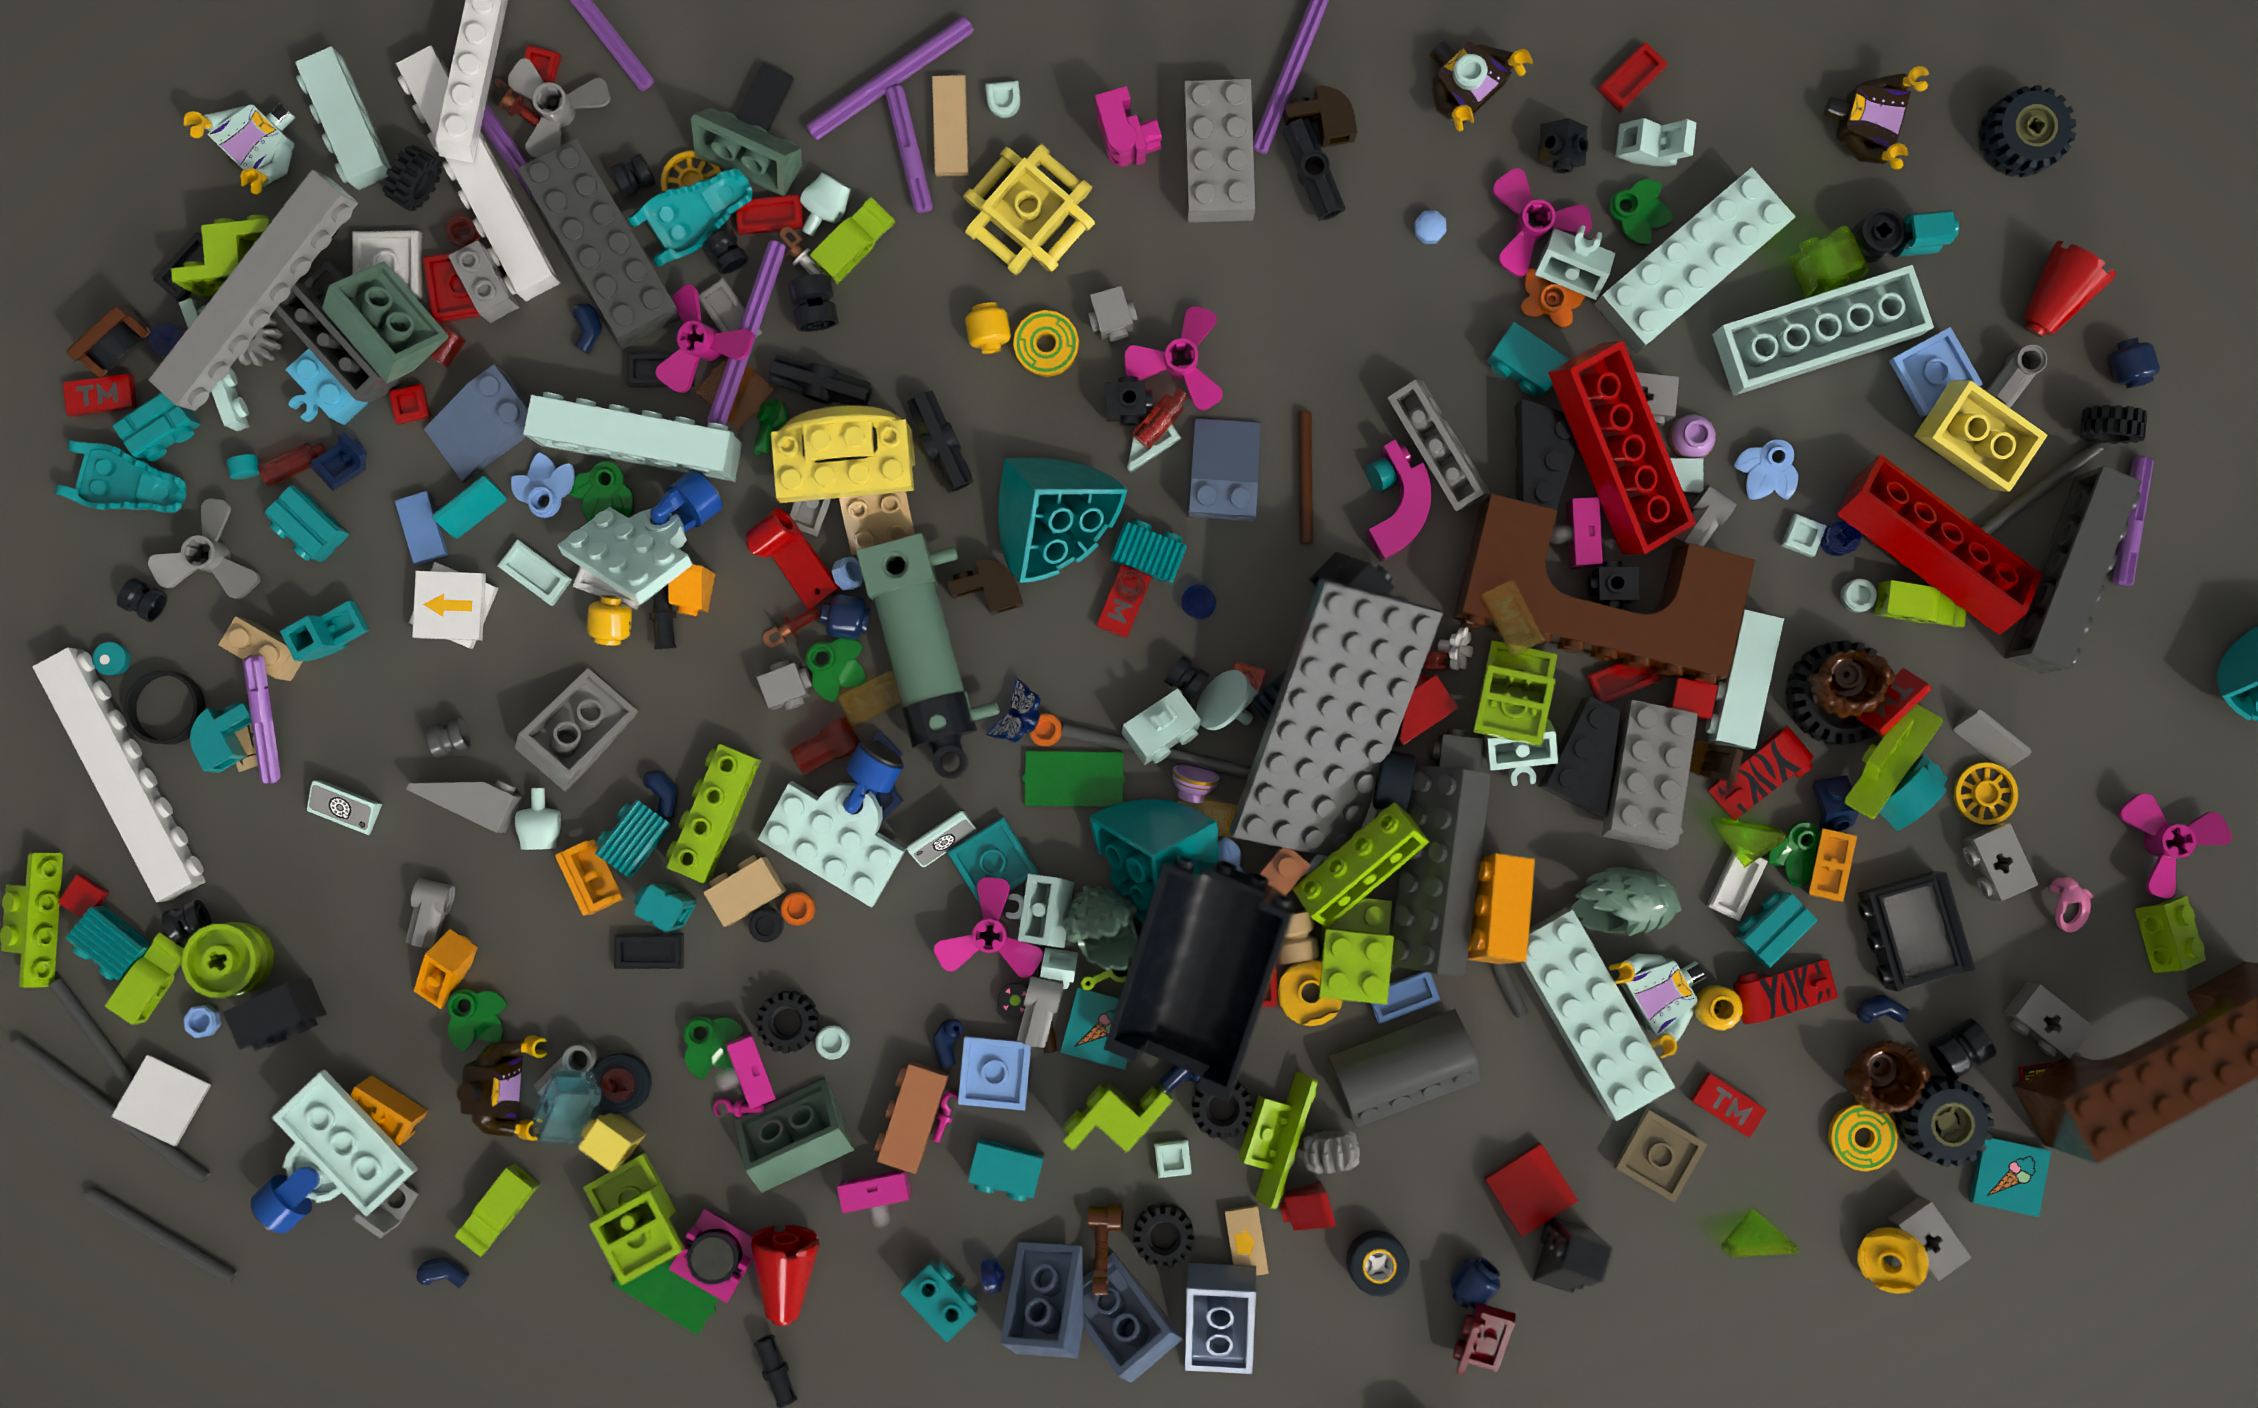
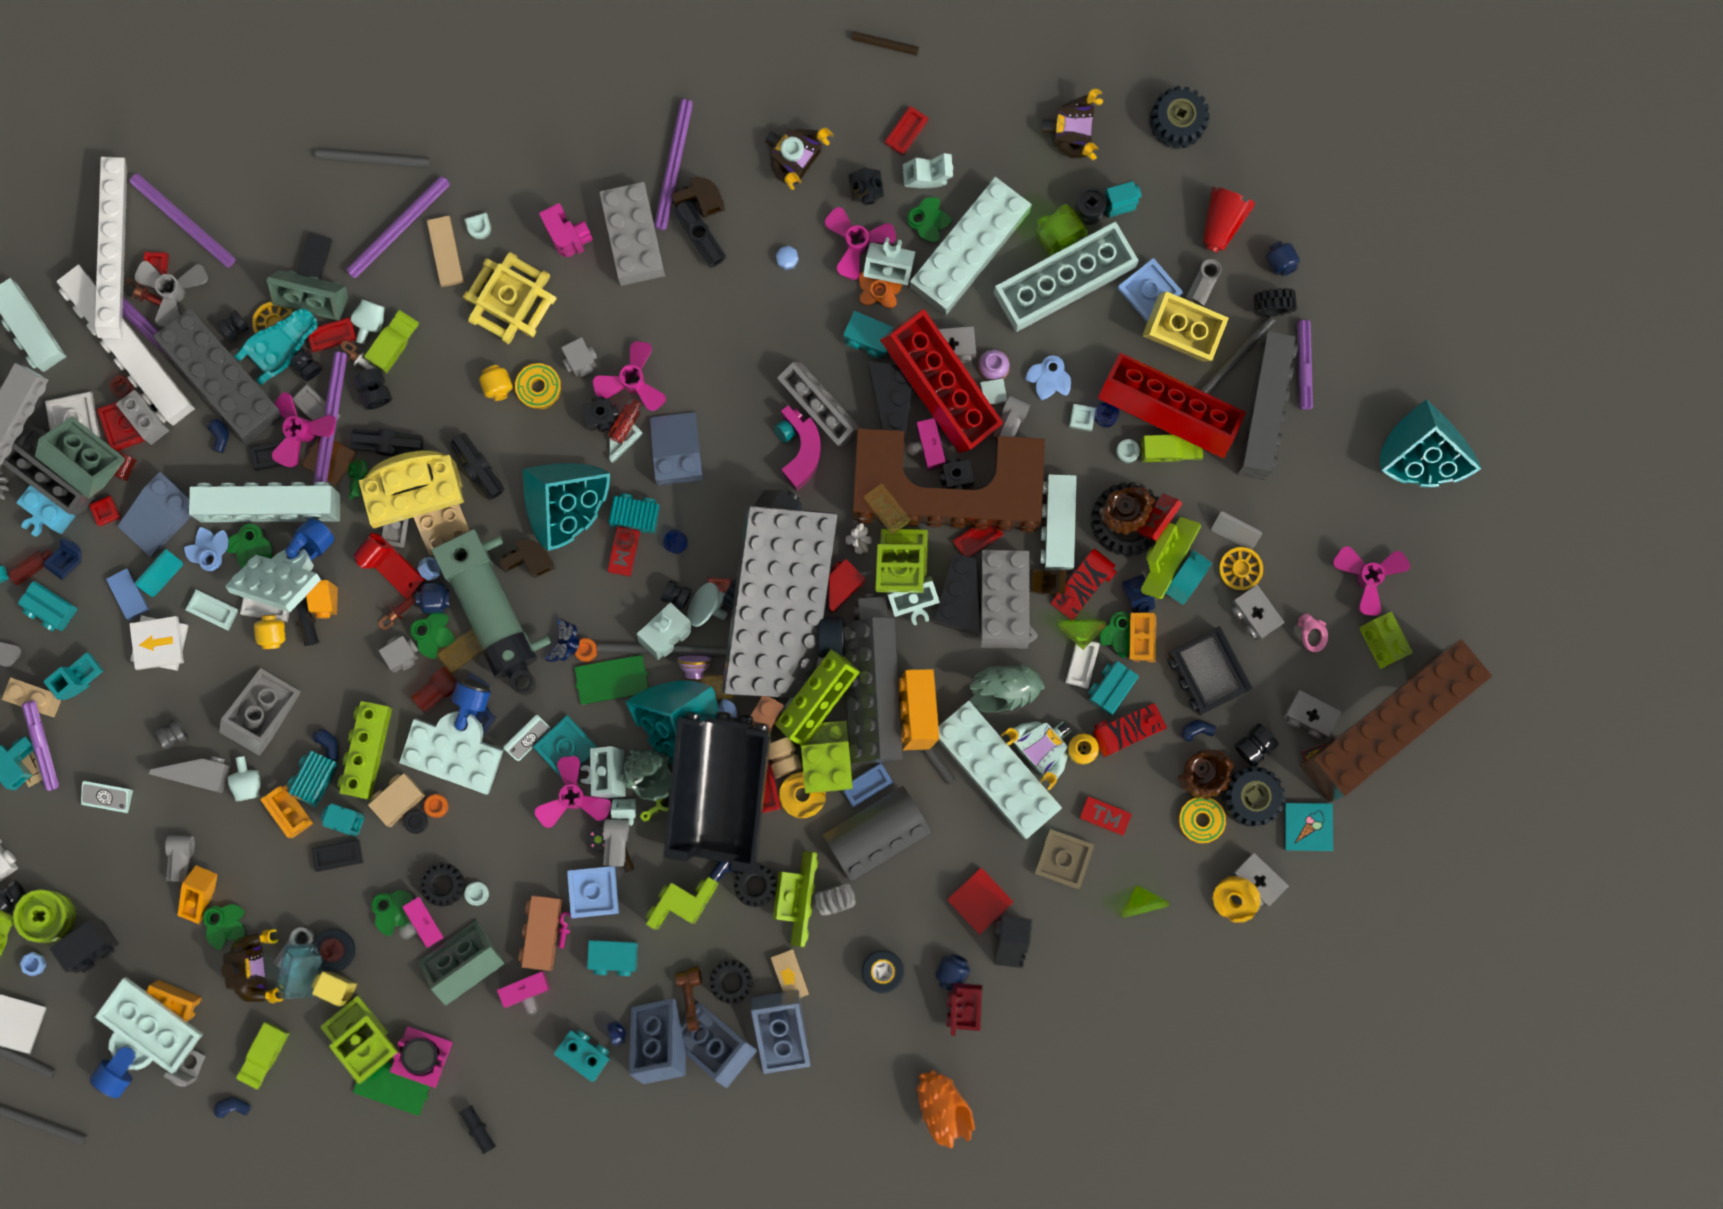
camera: 10 degrees left, 5 degrees down
(412, 177) = (81, 356): black tyre -> none
(738, 1108) = (419, 952): dark pink hand -> none
(784, 1269) = (470, 1057): red cone -> none
(909, 149) = (419, 272): medium lavender axle -> none
(944, 1039) = (554, 876): dark blue arm -> none
(1089, 1028) = (651, 850): teal tile -> none
(1172, 1158) = (728, 928): light aqua tile -> none
(1305, 477) = (733, 443): reddish brown bar -> none
(1307, 1207) = (825, 941): red slope -> none
(1435, 661) = (843, 551): clear red bush -> none
(1694, 697) = (1026, 541): red panel -> none

